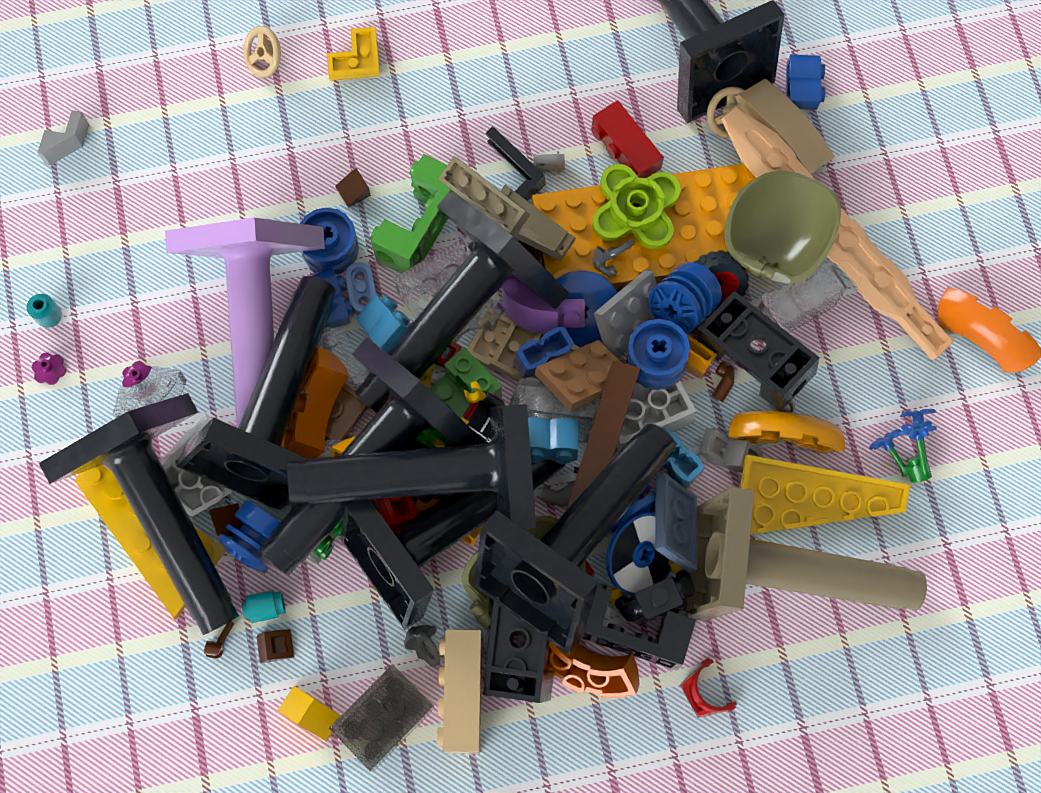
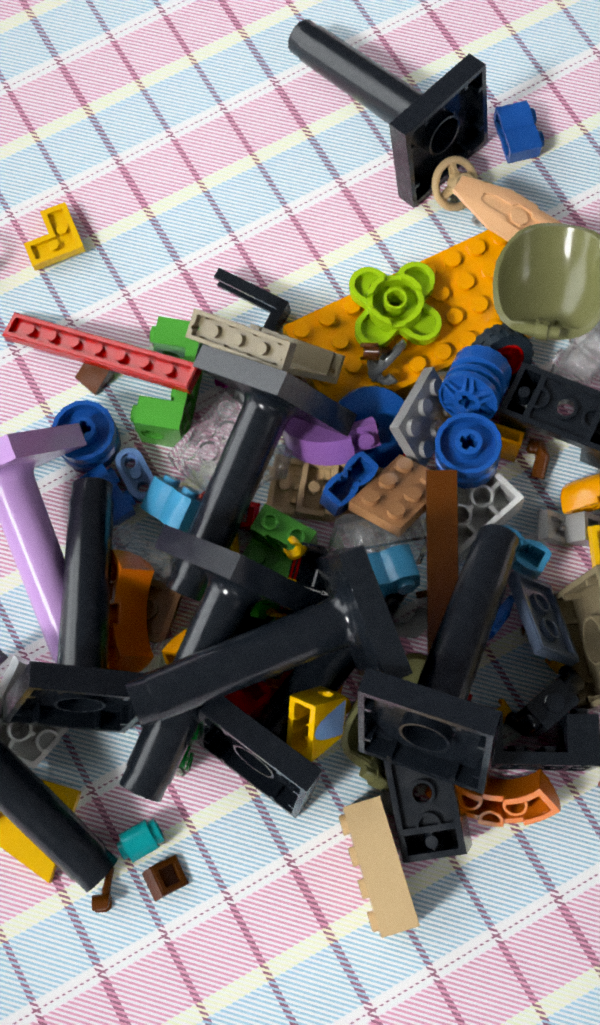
camera: 10 degrees left, 0 degrees up
(225, 515) = (73, 760): reddish brown slope -> none
(253, 533) = (105, 771): blue wheel -> none
(309, 713) = (224, 939): yellow slope -> none
(364, 171) = (102, 352): none -> tile
(382, 718) = (303, 921): clear smoke brick -> none
(416, 640) = (310, 825): dark grey piece -> none
(445, 547) = (316, 720): none -> yellow torso
(549, 161) = (288, 286): light grey pin -> none
(602, 241) = (372, 351): none -> reddish brown hand
(623, 555) = (510, 667): piece -> none
(626, 140) = (359, 242): red brick -> none
(782, 116) = (507, 170): tan slope -> none

